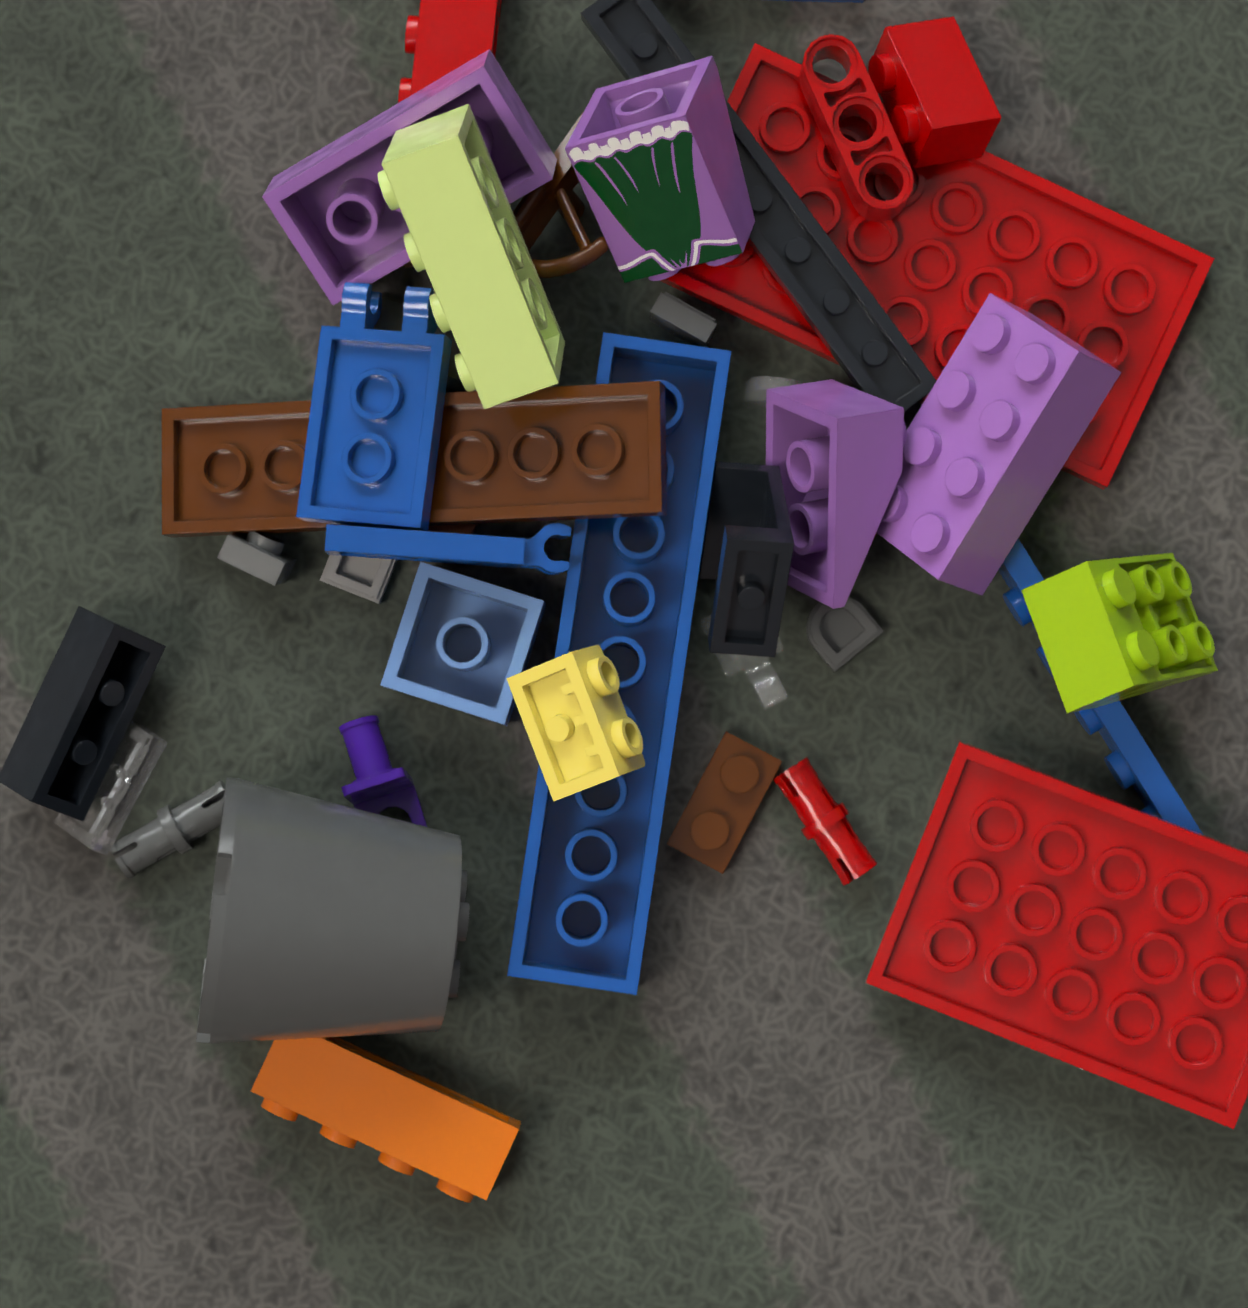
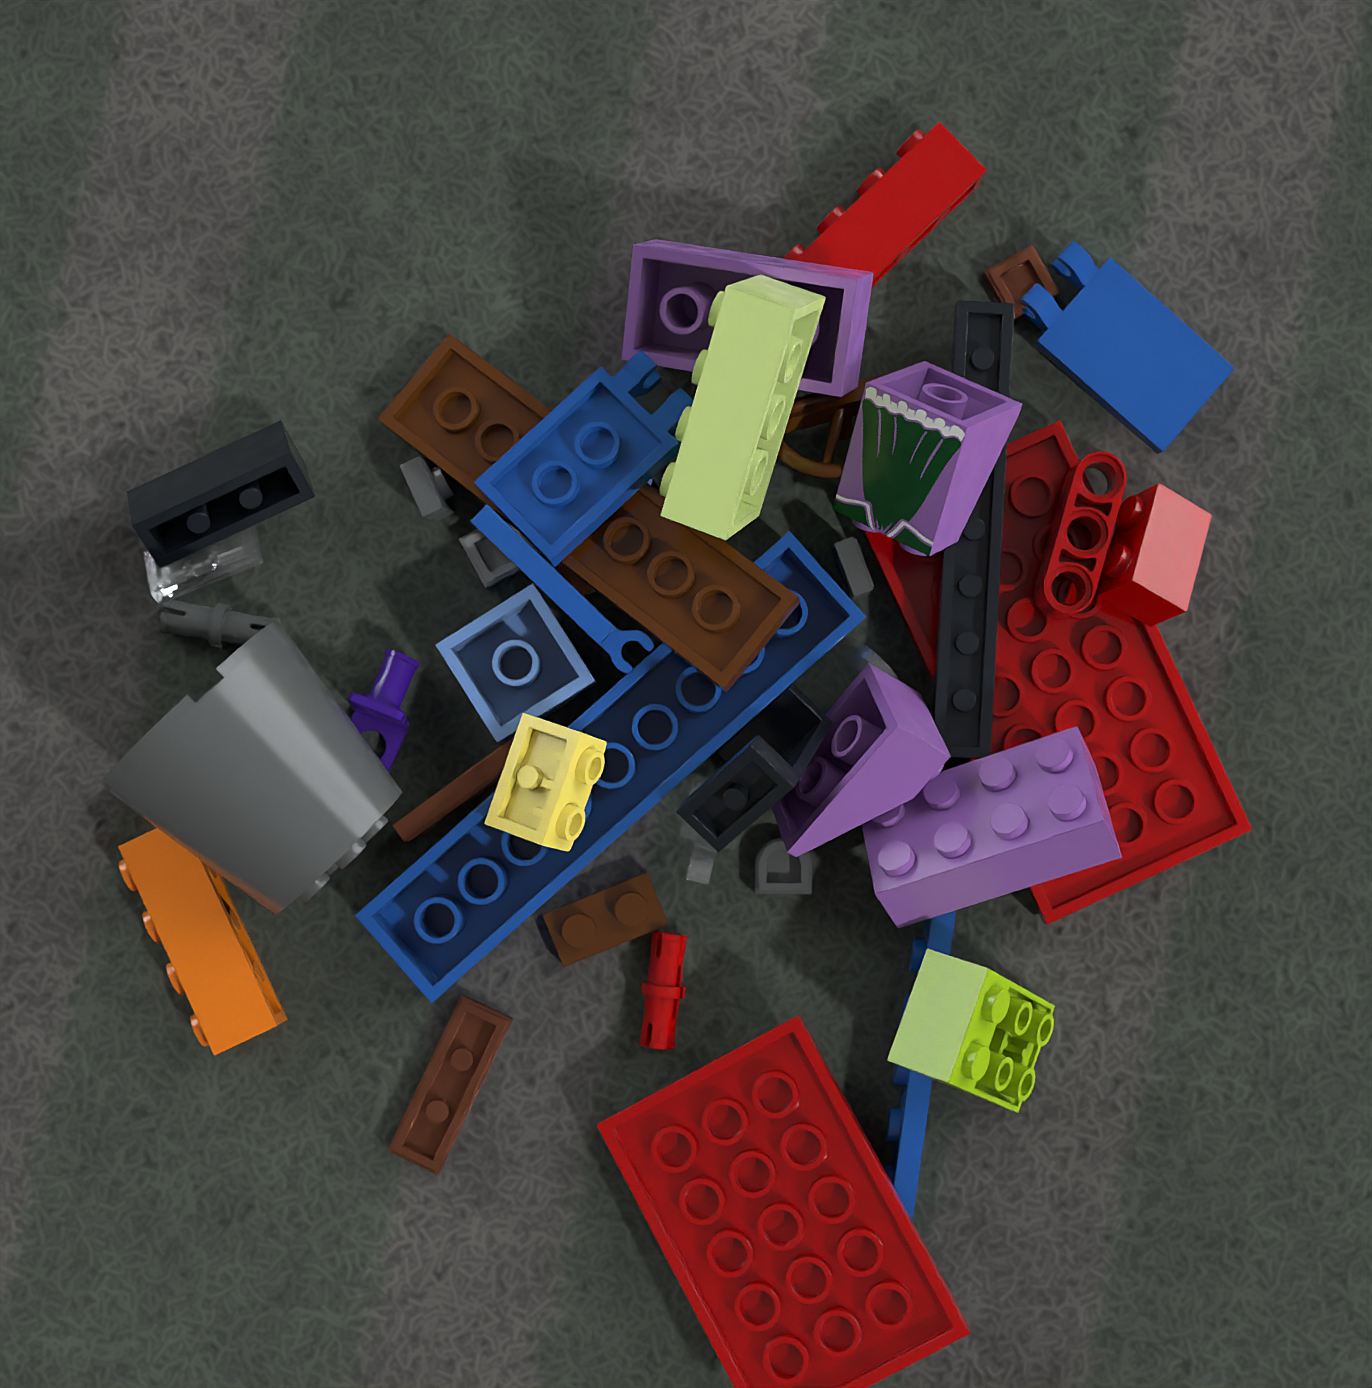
camera: 35 degrees right, 0 degrees up
(504, 800) = (453, 795): none -> copper tile
(709, 1058) = (450, 1084): none -> copper tile

